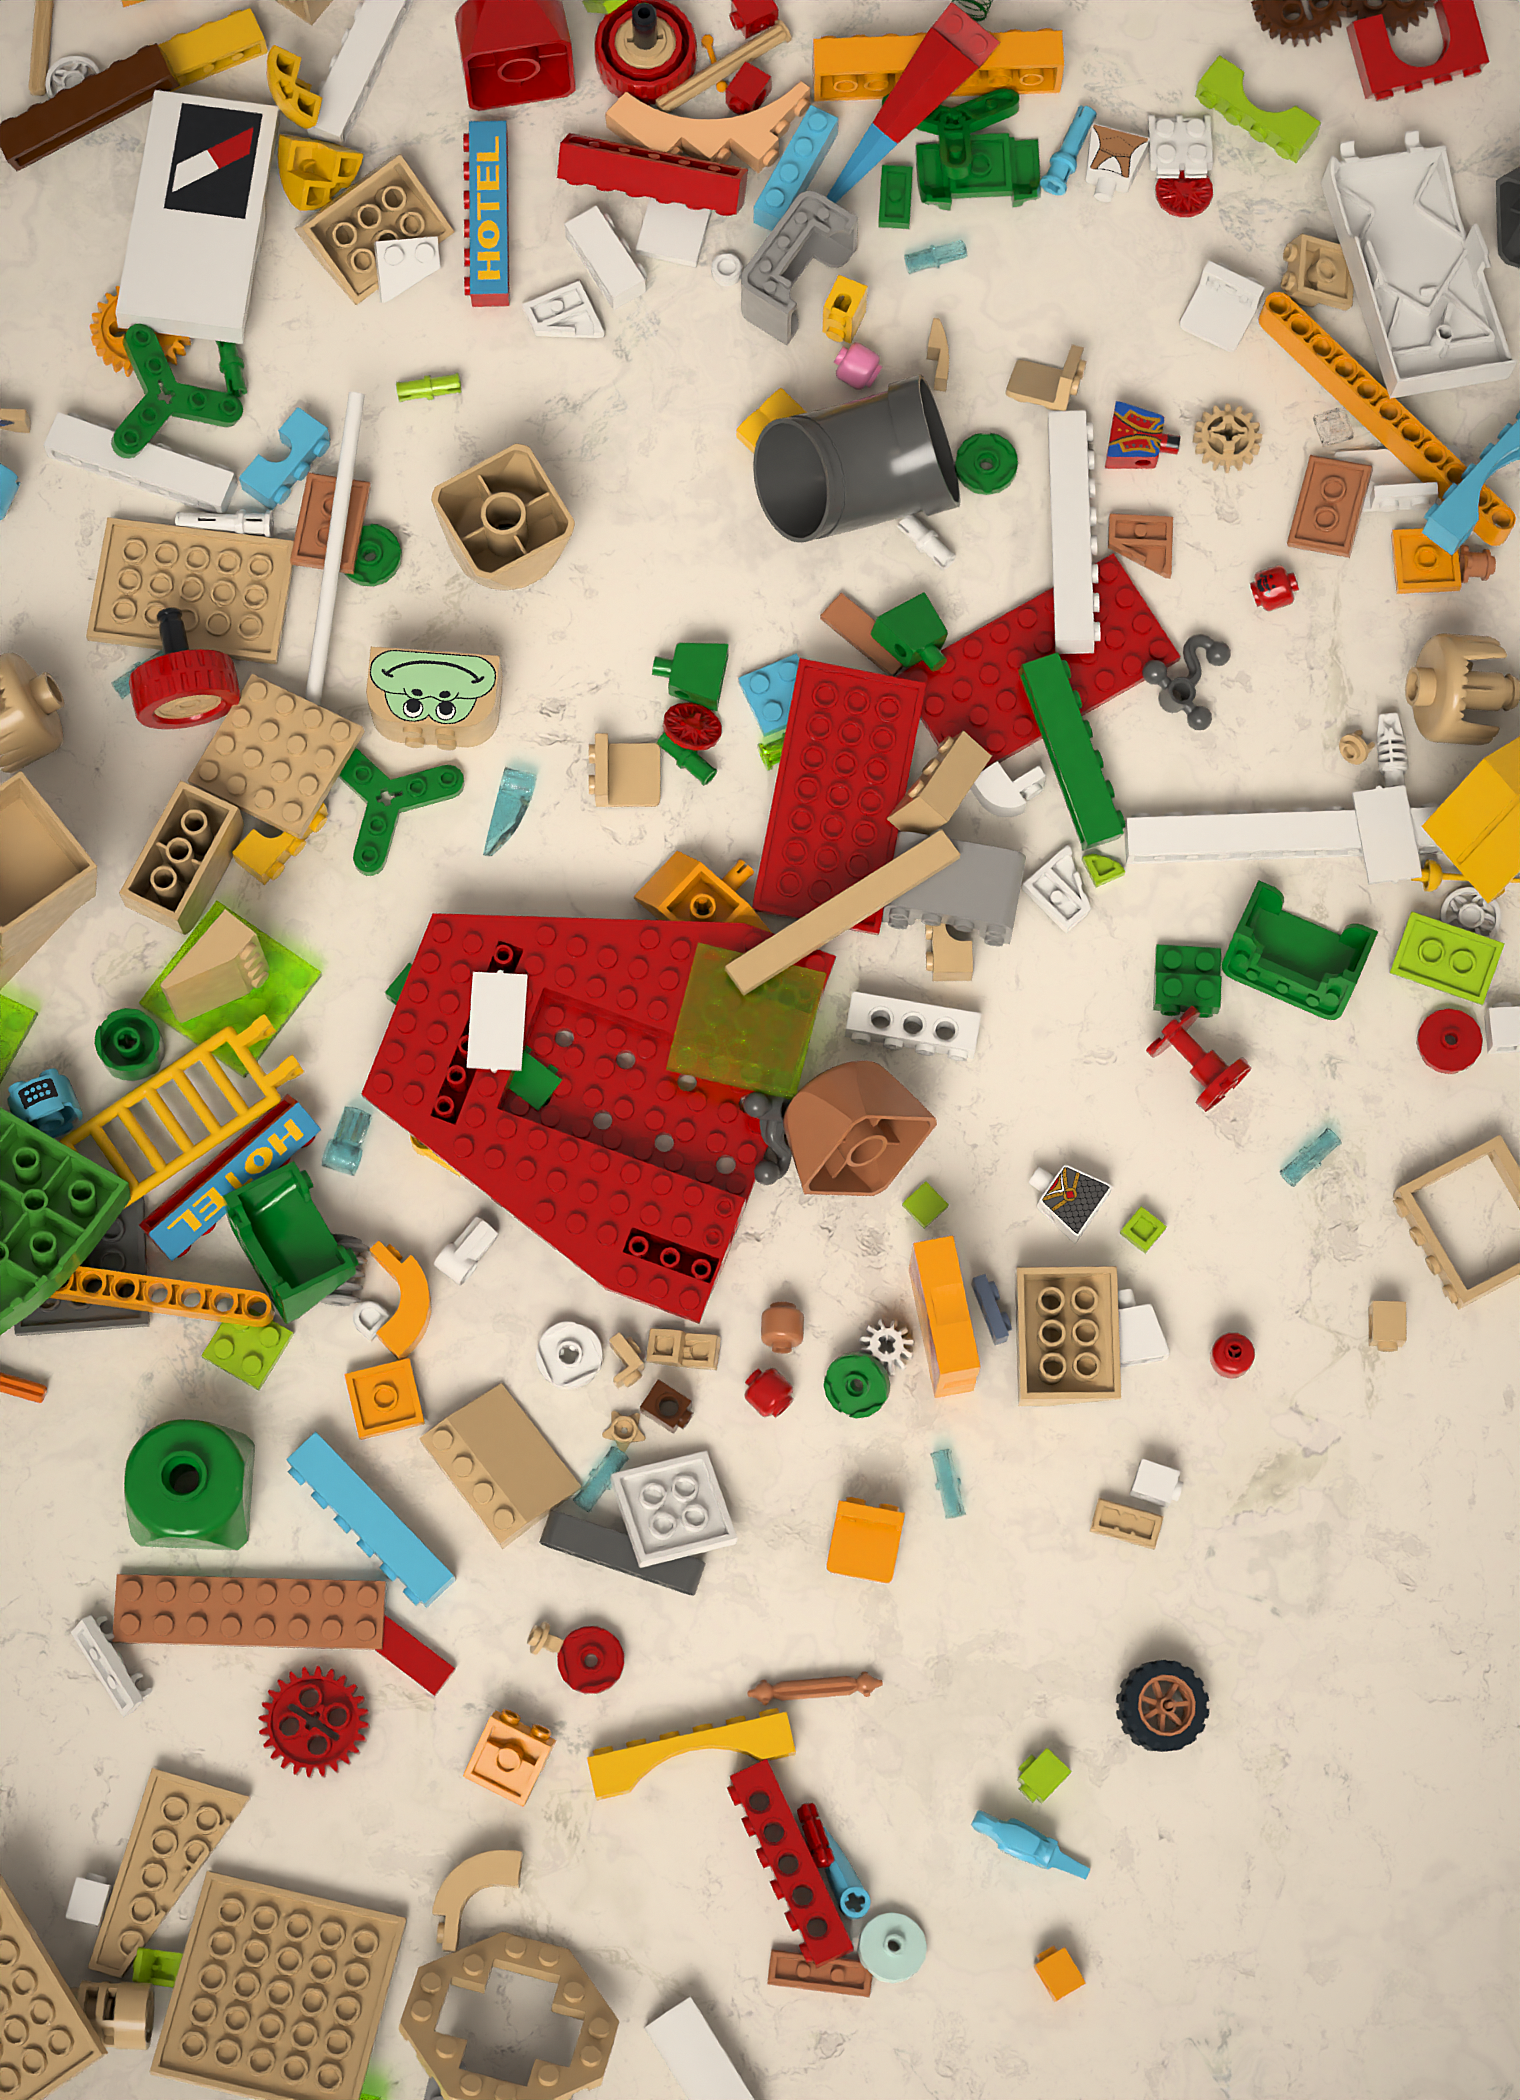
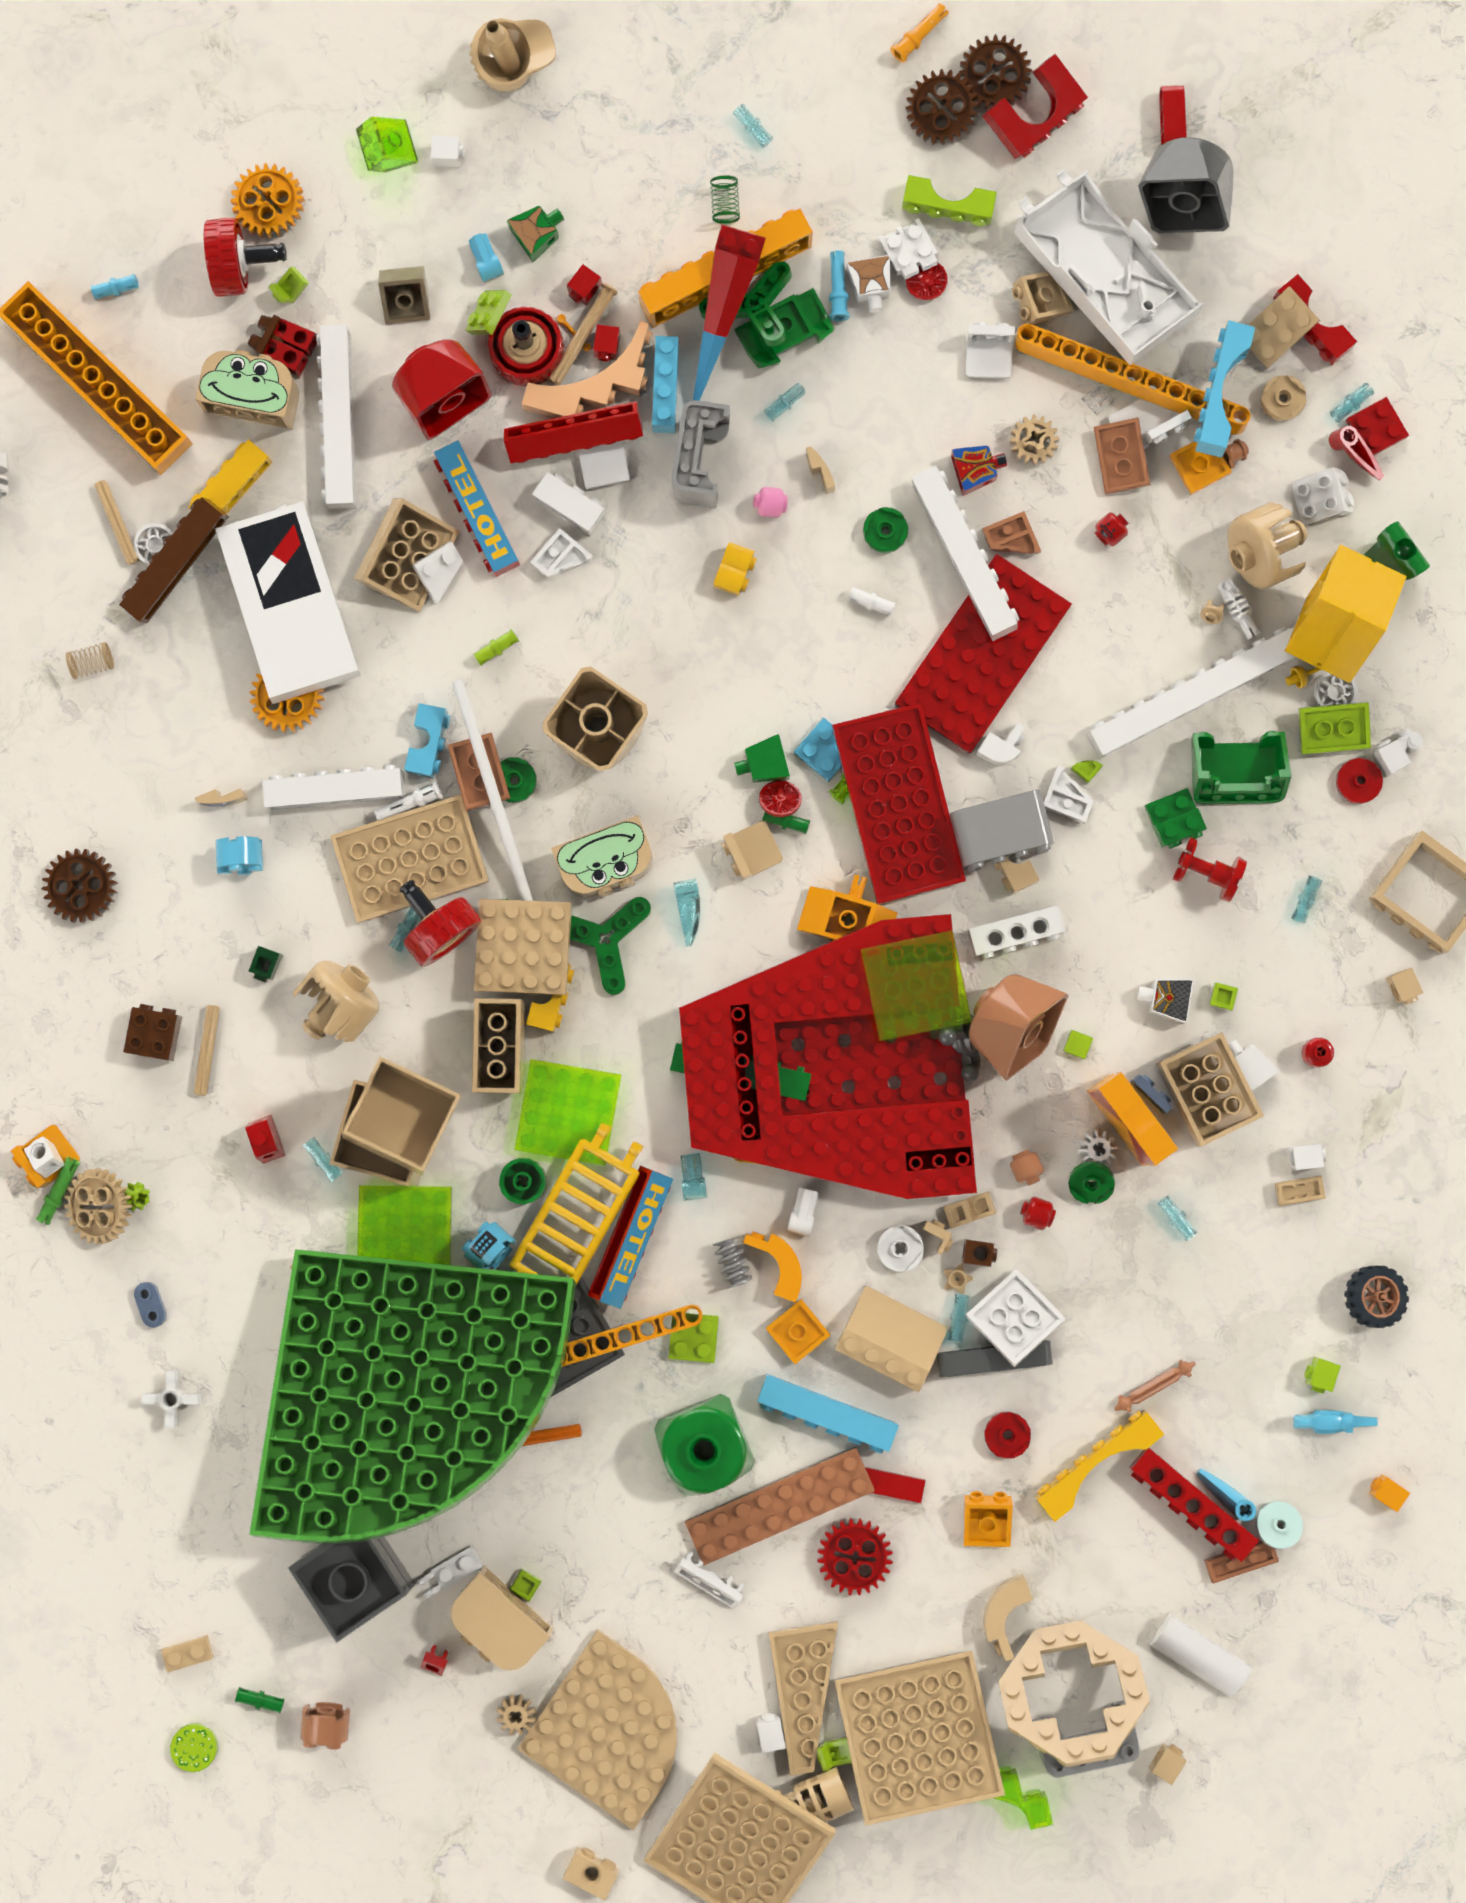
camera: 20 degrees left, 10 degrees up
(185, 402) = (343, 733): green piece -> none
(216, 969) = (562, 1109): tan slope -> none
(231, 366) = (360, 694): green pin -> none
(288, 1241) = (691, 1263): green windscreen -> none
(290, 92) = (306, 487): yellow brick -> none
(315, 170) = (346, 531): yellow brick -> none
(369, 1318) = (763, 1283): white tile -> none
(497, 1021) = (756, 1060): white piece -> none
(540, 1638) = (970, 1436): tan plate -> none
(726, 269) = (651, 473): white tile -> none
(815, 1835) = (1199, 1478): red axle -> none
(842, 912) = (944, 885): tan tile -> none
(844, 314) = (745, 469): yellow brick -> none
(855, 628) = (862, 683): nougat tile -> none
(856, 464) = (807, 576): dark grey cylinder -> none
(865, 1540) = (1143, 1279): light orange bracket -> none
(895, 197) = (739, 372): green plate -> none
(912, 633) = (894, 670): green torso -> none
(941, 786) = (963, 768): tan wedge -> none
(1047, 384) = (900, 458): tan bracket -> none
(1071, 751) = (1033, 702): green brick -> none
(1156, 673) = (1063, 623): dark grey piece -> none
(1386, 834) = (1261, 664): white piece -> none

